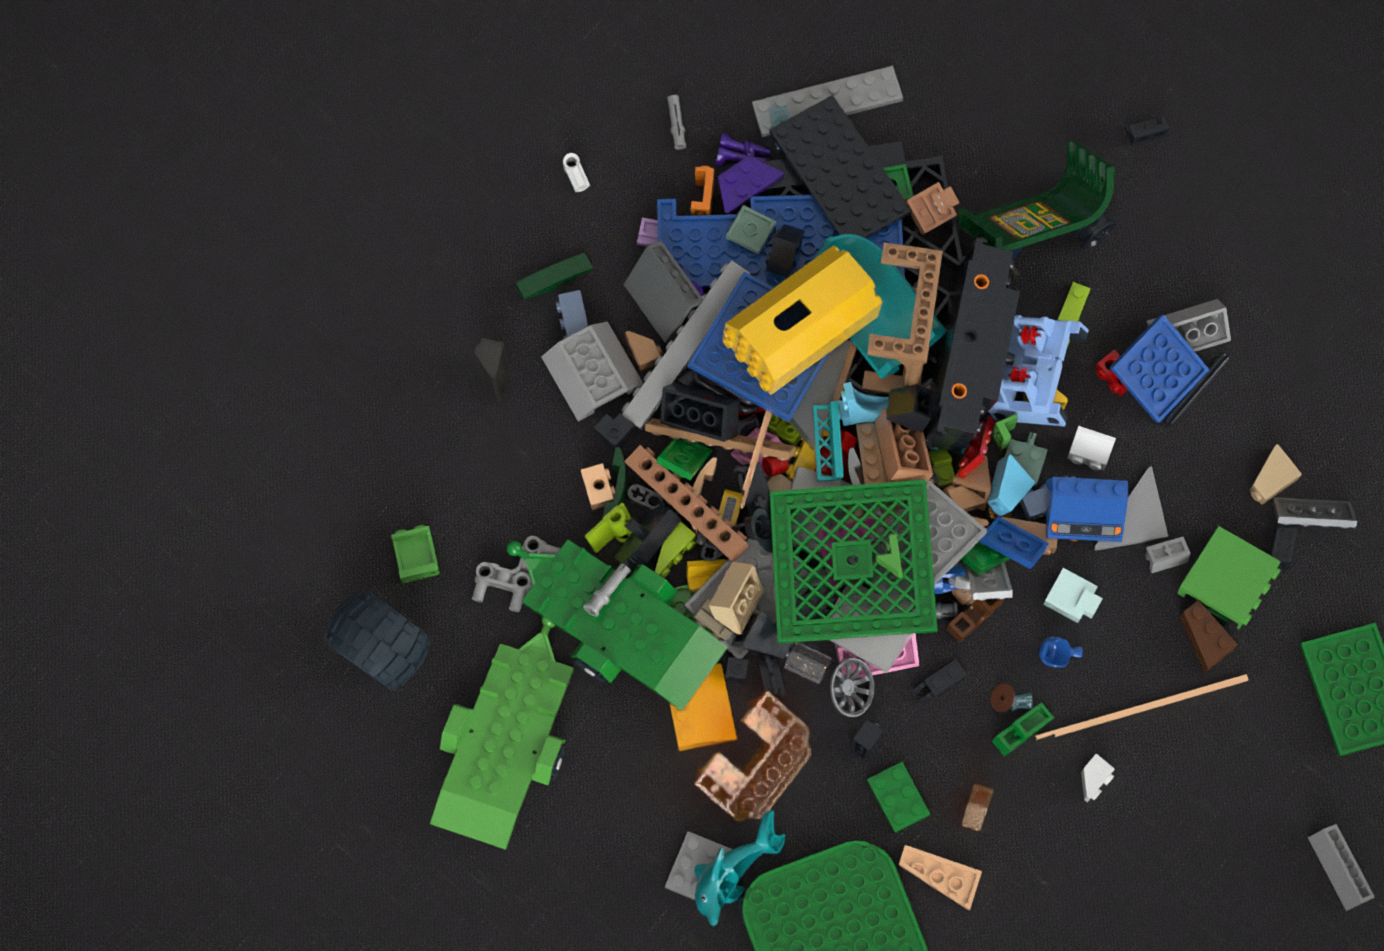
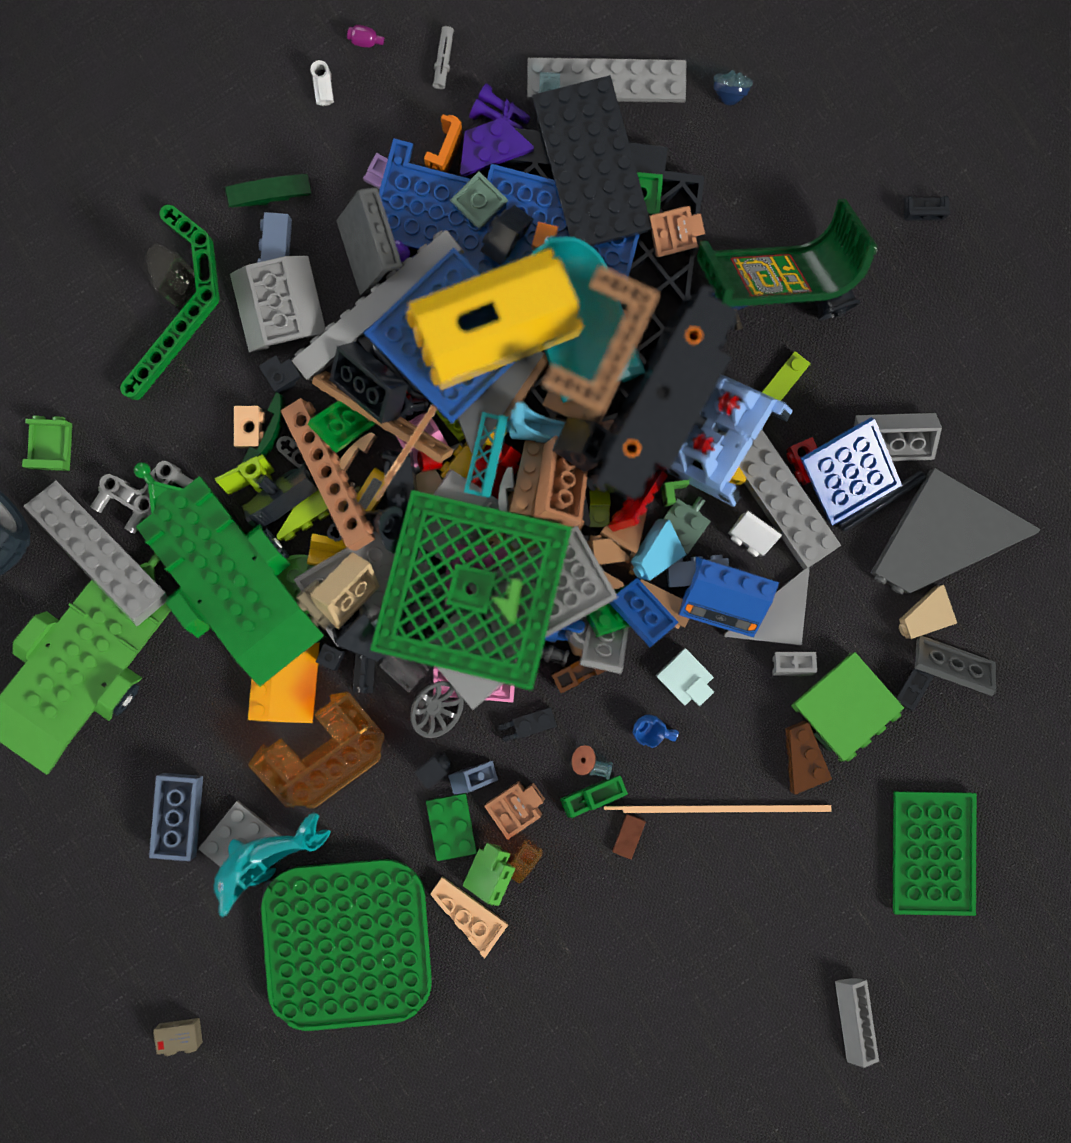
camera: 10 degrees right, 15 degrees up
(493, 635) = (96, 553): none -> light grey brick
(510, 406) = (185, 315): none -> green beam
(600, 123) = (364, 36): none -> magenta plant
(602, 596) = (210, 549): light grey pin -> none
(636, 859) = (176, 816): none -> sand blue brick
(643, 350) = (335, 297): medium nougat slope -> none
(816, 241) = (542, 232): none -> orange panel
(904, 744) = (473, 778): none -> sand blue slope
(941, 76) = (732, 87): none -> hair
(949, 825) = (489, 874): none -> bright green piece
(953, 760) = (515, 808): none -> nougat piece
(1068, 757) = (629, 836): none -> copper tile
(1094, 775) = (648, 864): white slope -> none
(1111, 414) = (786, 503): none -> light grey brick
(1263, 399) = (945, 532): none -> dark grey slope

